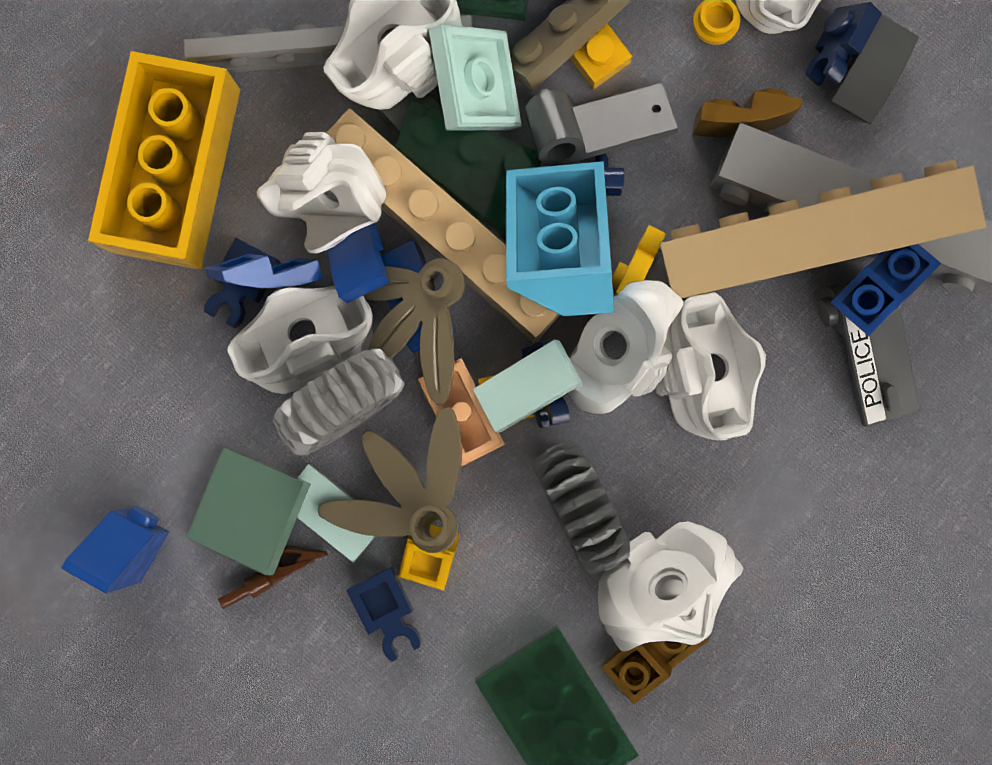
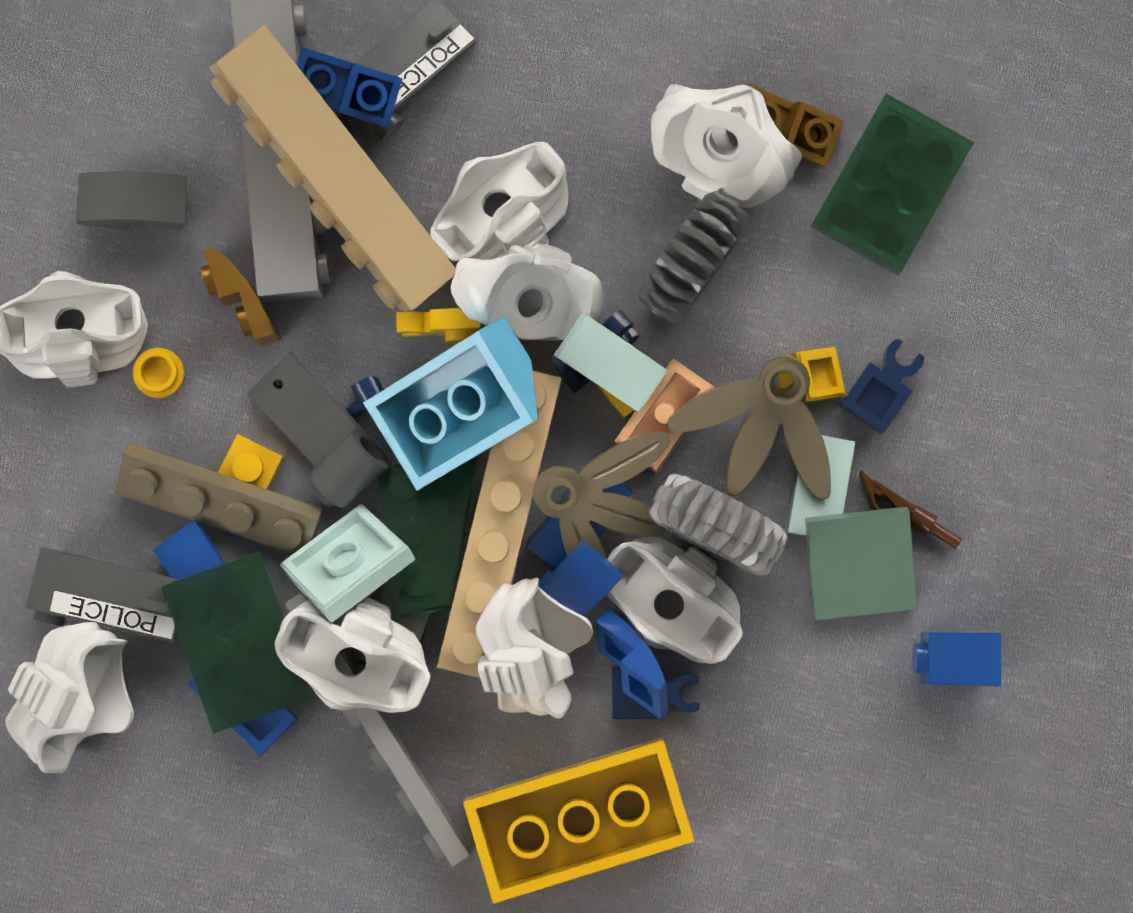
camera: 125 degrees left, 0 degrees up
(843, 35) = (118, 244): dark blue plate -> none

